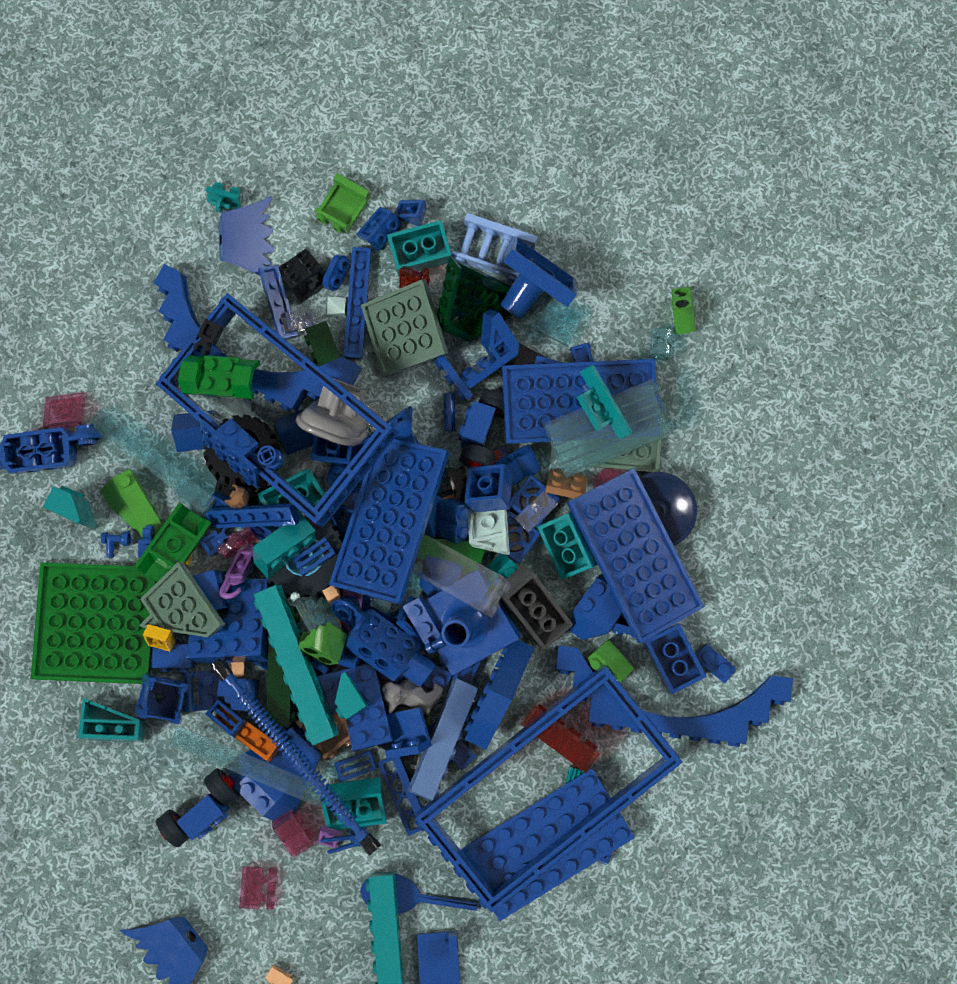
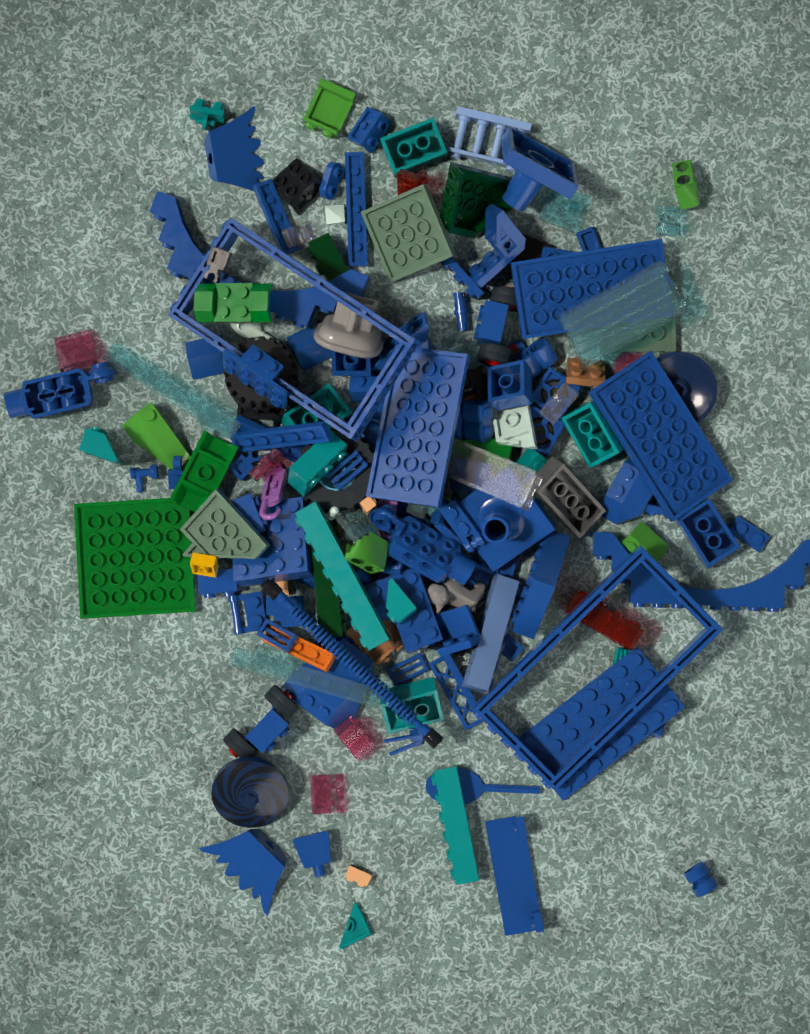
camera: 10 degrees left, 5 degrees up
(106, 724) = (164, 654): teal wedge -> none
(167, 708) = (223, 626): blue container -> none
(177, 878) = (250, 792): none -> dish
(236, 947) = (314, 851): none -> blue torso
(238, 498) = (265, 421): medium nougat piece -> none
(270, 457) = (302, 381): blue wheel -> none
(327, 832) = (386, 734): medium lavender tile -> none
(411, 211) = (399, 108): blue slope -> none
(600, 404) = (612, 294): teal bracket -> none

